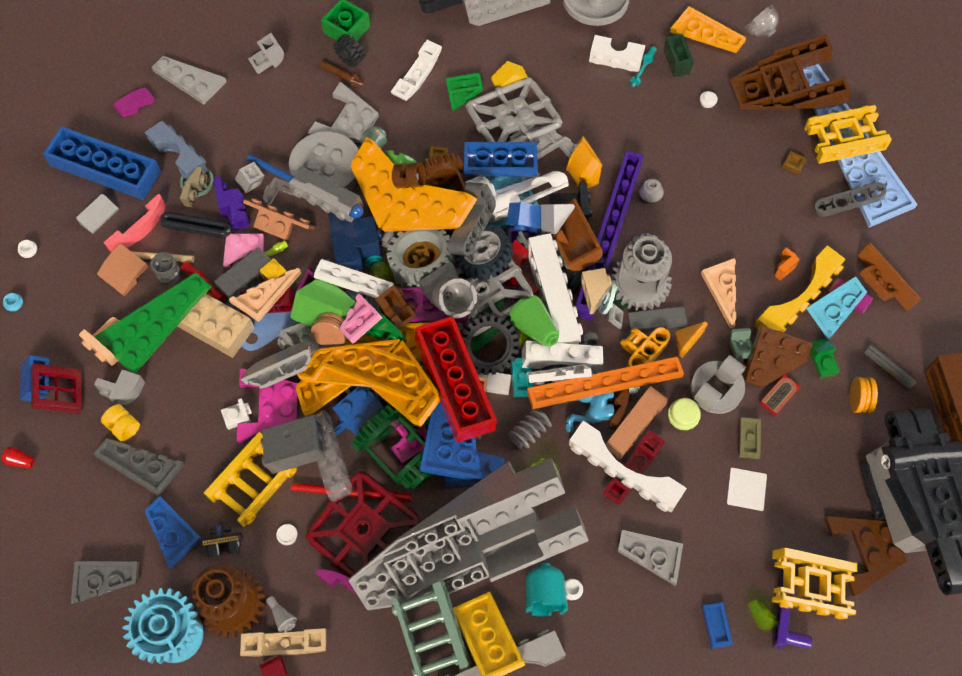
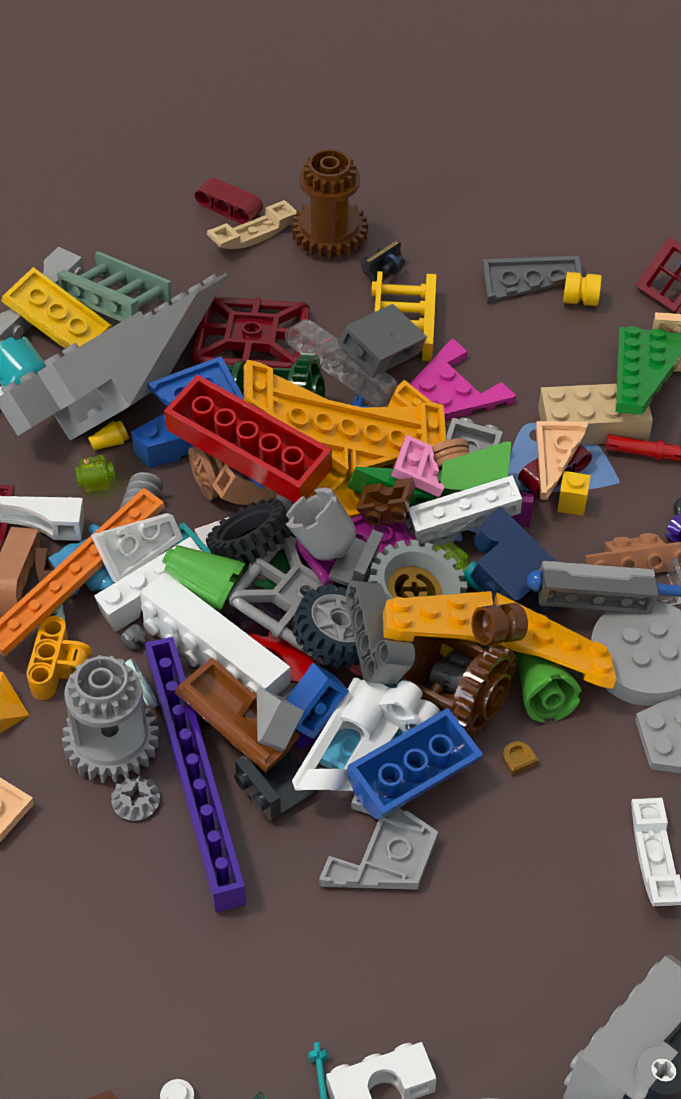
camera: 145 degrees right, 15 degrees down
(17, 458) = (647, 222): red cone -> none
(102, 577) = (466, 191): dark grey wing -> none
(124, 390) = (617, 314): light grey brick -> none
(164, 628) = (361, 136): medium azure piece -> none
(172, 532) = (438, 248): blue wing -> none
(236, 414) = (477, 360): white bracket -> none
(239, 245) = (645, 510): bright pink wing -> none
(243, 274) = (608, 477): flat silver brick -> none
(277, 248) = (605, 529): lime piece -> none
(278, 366) = (472, 399): light grey brick -> none
(284, 620) = (270, 242): light grey cone -> none
(287, 534) = (328, 302): white piece -> none
(333, 578) = (251, 286): magenta slope -> none
(376, 134) = (619, 718): sand green head -> none
(463, 89) = (568, 871): green wing -> none
(508, 74) = (515, 940): yellow slope -> none
(518, 106) = (461, 887): light grey plate -> none
(584, 164) = (294, 845): light orange slope -> none
(595, 287) = (159, 656): tan slope -> none
(651, 191) = (176, 881): light grey cone -> none
(657, 318) = (44, 720): dark grey tile -> none

